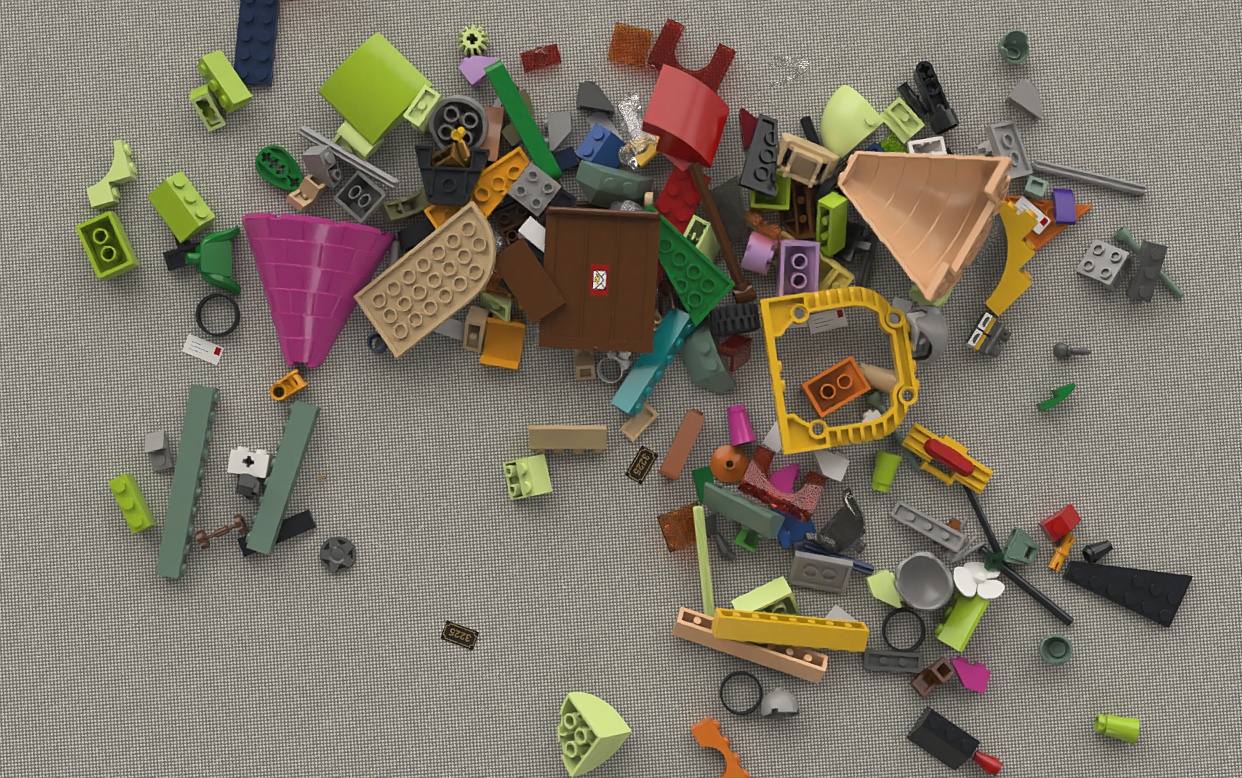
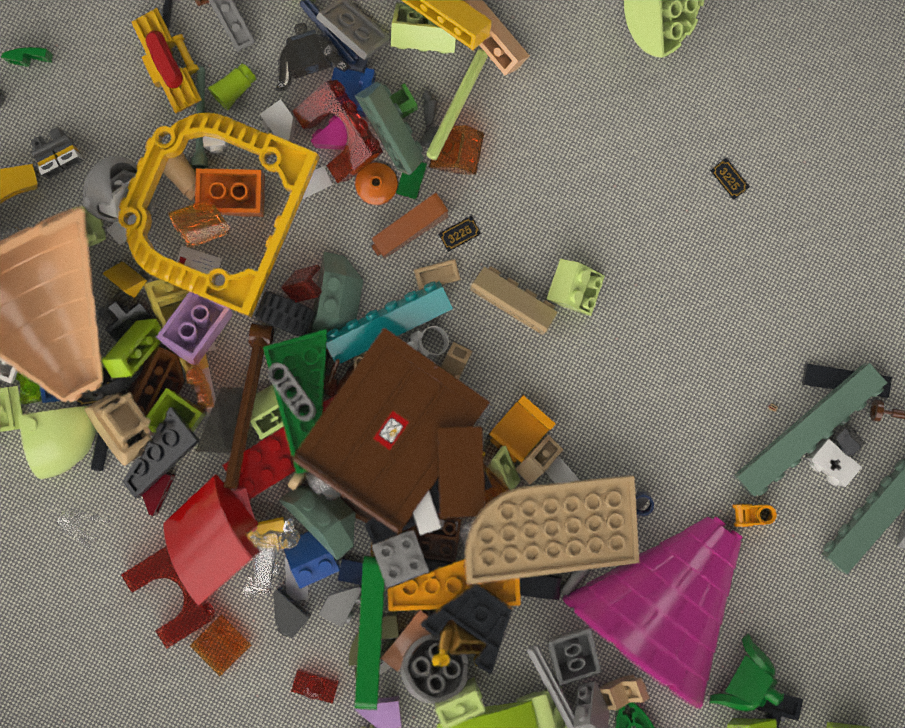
camera: 145 degrees left, 0 degrees up
(198, 314) = (798, 639): black tyre -> none
(202, 349) = (813, 601): white sticker -> none
(337, 554) = (800, 325): dark grey wheel -> none
(405, 207) = (536, 619): olive arch -> none
(701, 262) = (282, 387): none -> light grey beam
(740, 426) = (343, 211): dark pink plant -> none
(758, 253) = (222, 364): lavender brick -> none
(840, 347) = (199, 222): none -> clear orange slope
(872, 273) = (125, 278): none -> yellow slope

